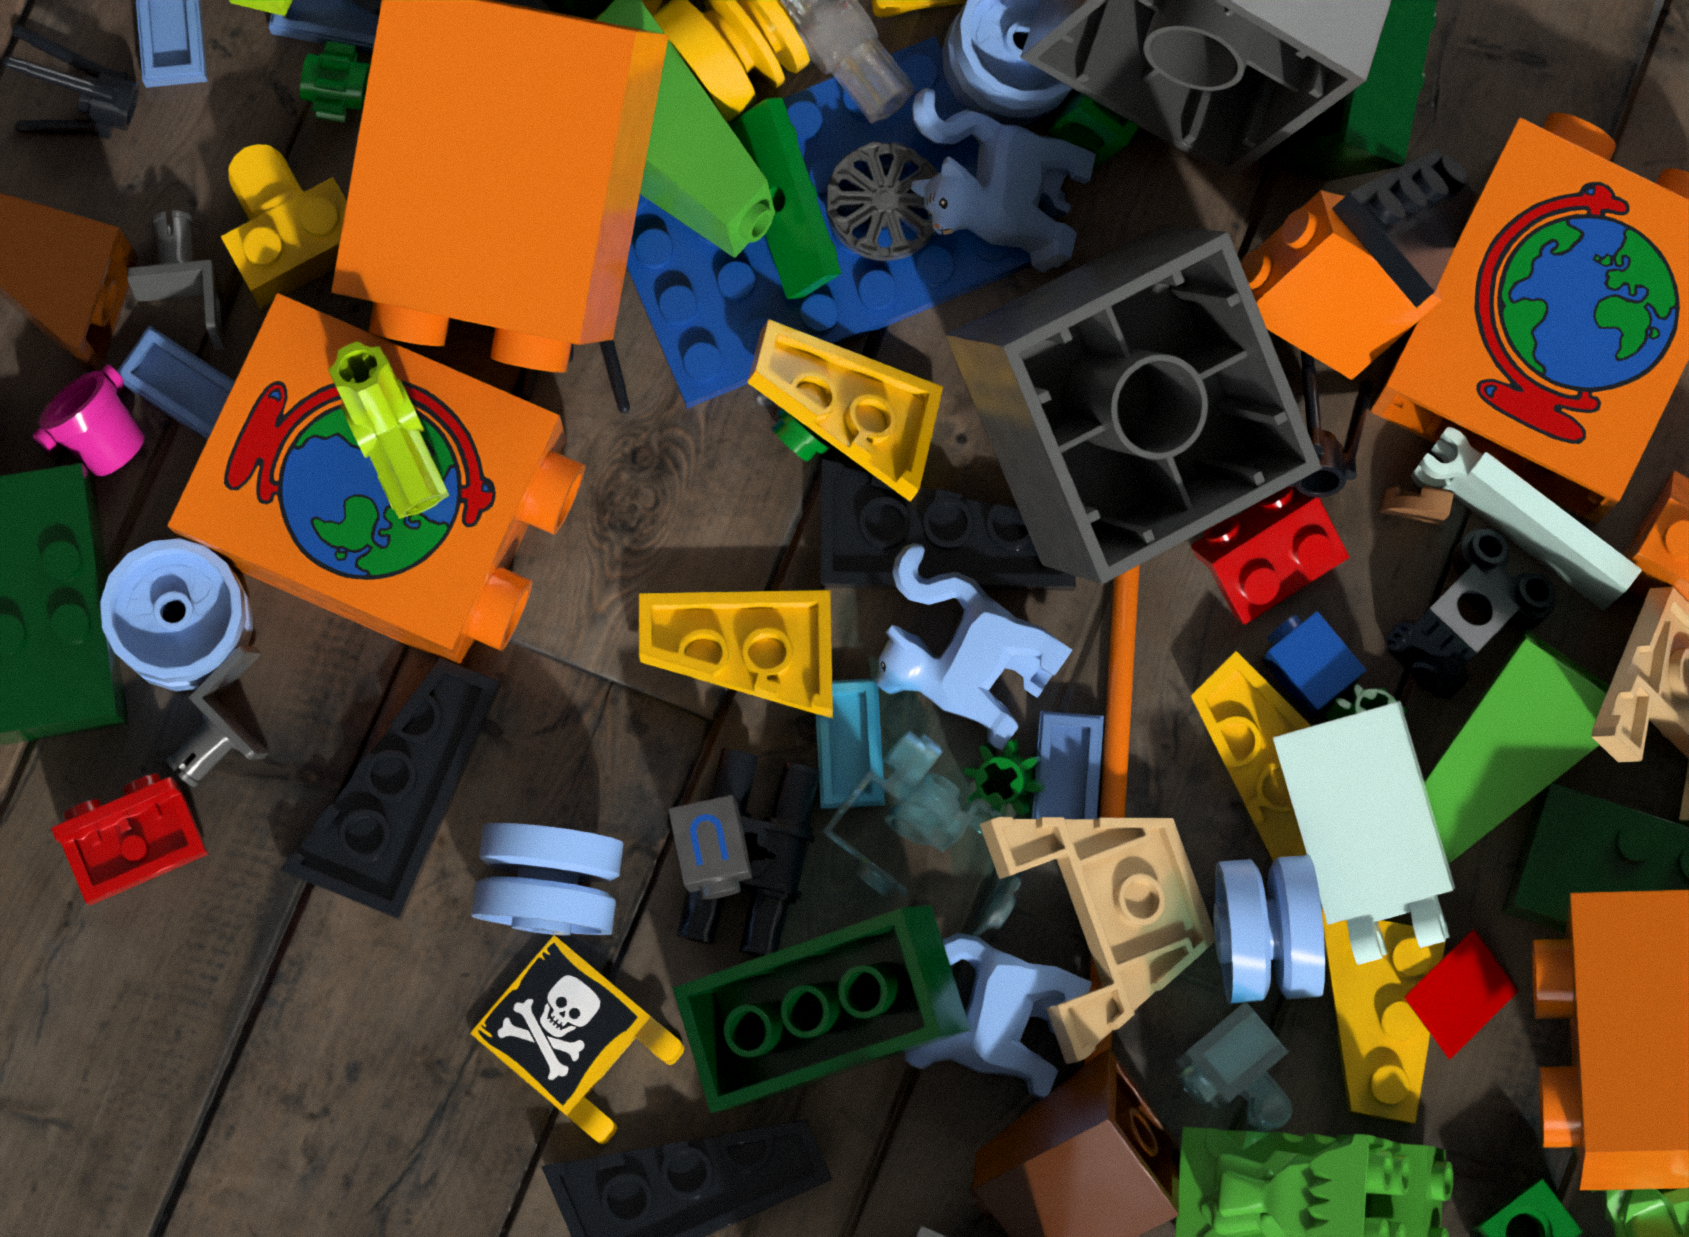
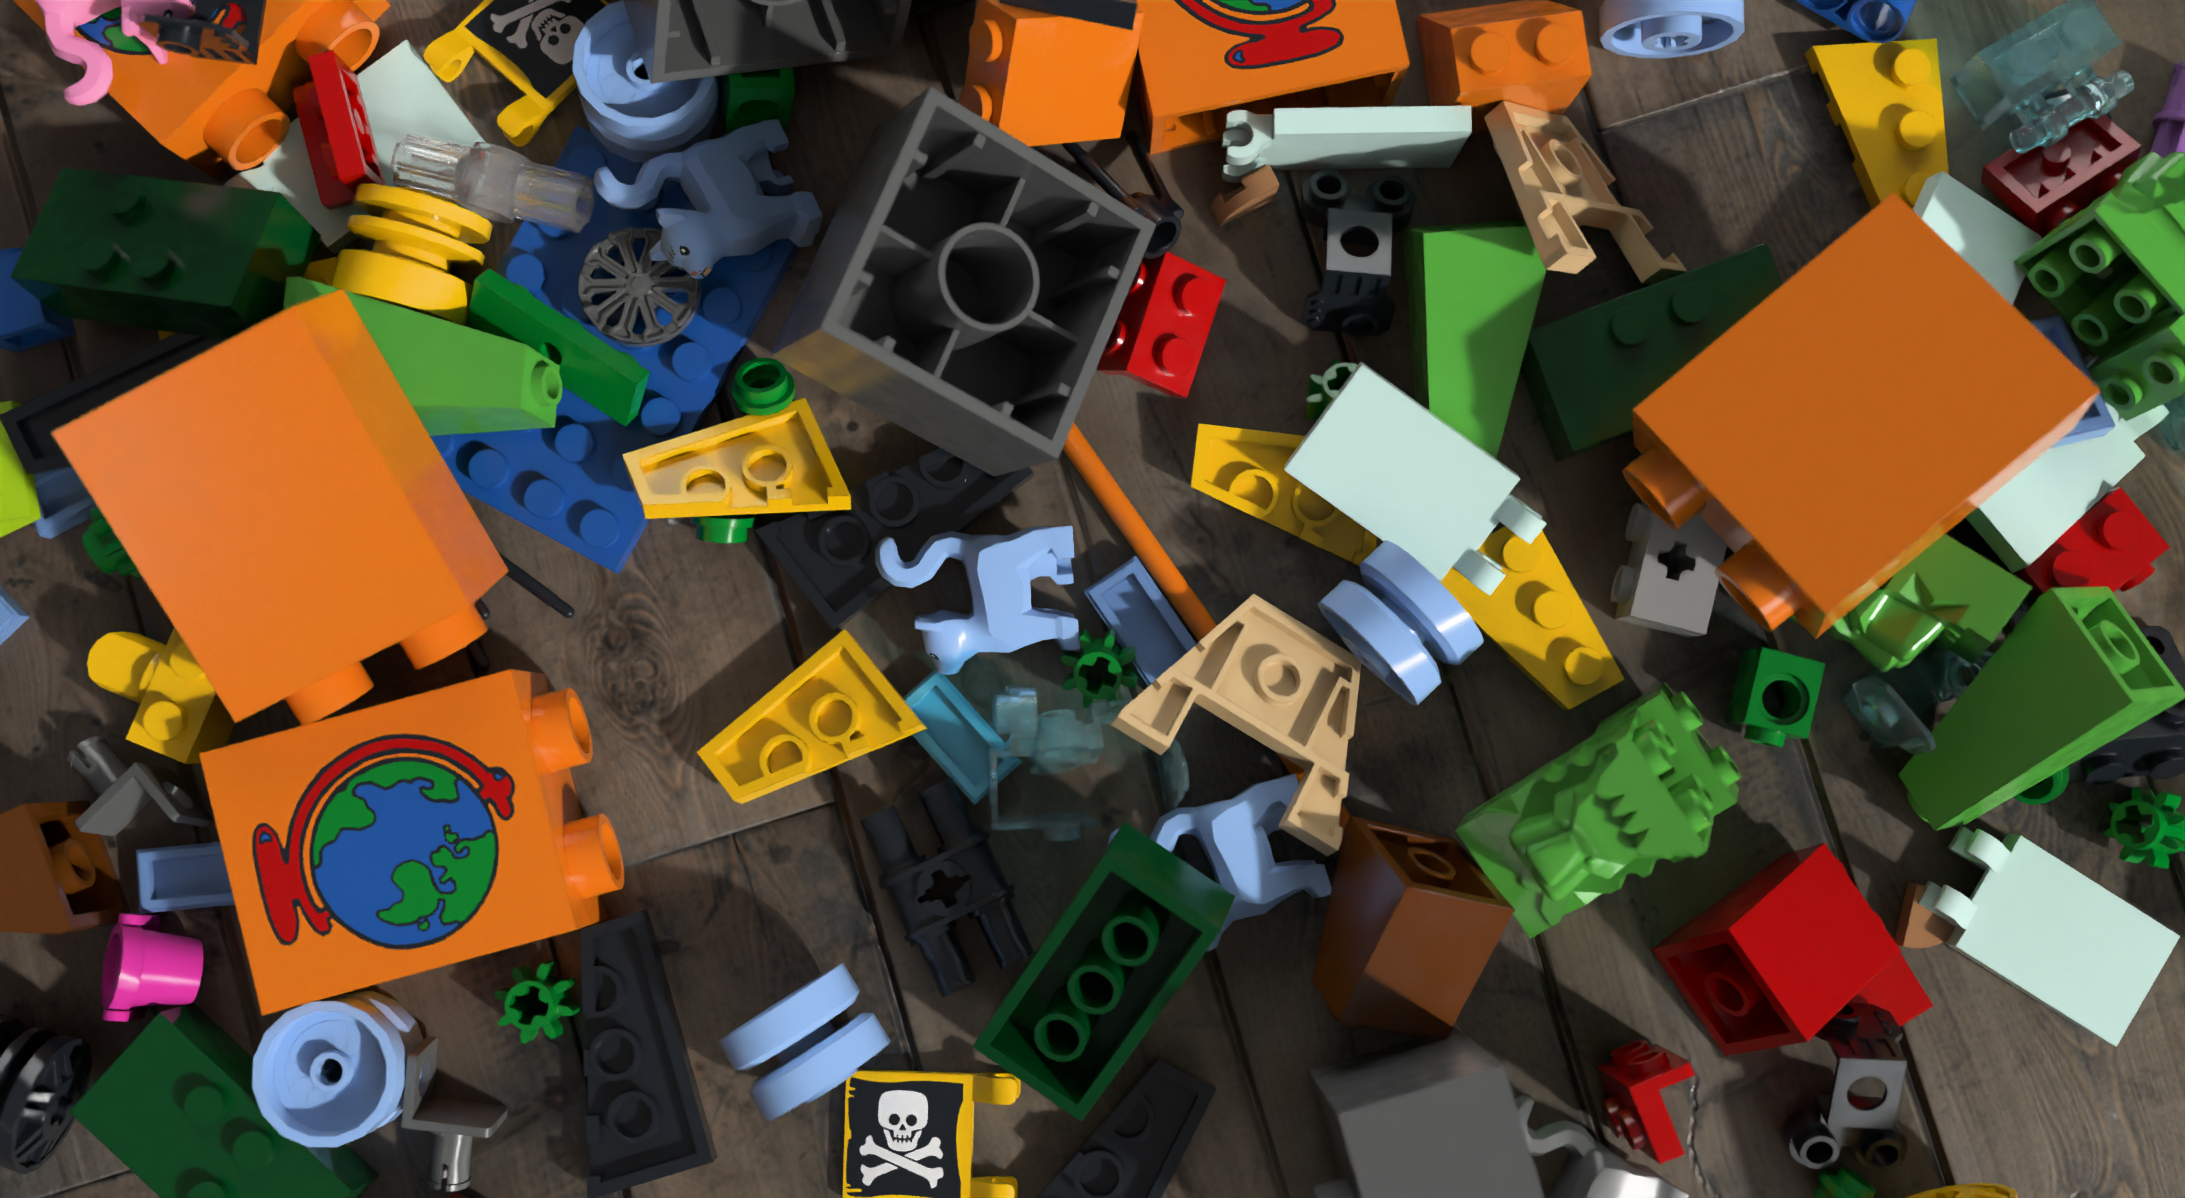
camera: 35 degrees left, 5 degrees up
(356, 703) = (522, 1011): none -> green gear
(387, 429) = (370, 797): lime piece -> none
(711, 846) = (913, 913): flat silver brick -> none
(916, 352) = (762, 387): none -> green plate
(1235, 1062) = (1456, 751): clear light blue brick -> none
(1311, 662) = (1263, 385): blue brick -> none
(1461, 994) = (1580, 551): red sticker -> none
(1489, 1080) = (1671, 602): none -> light grey brick

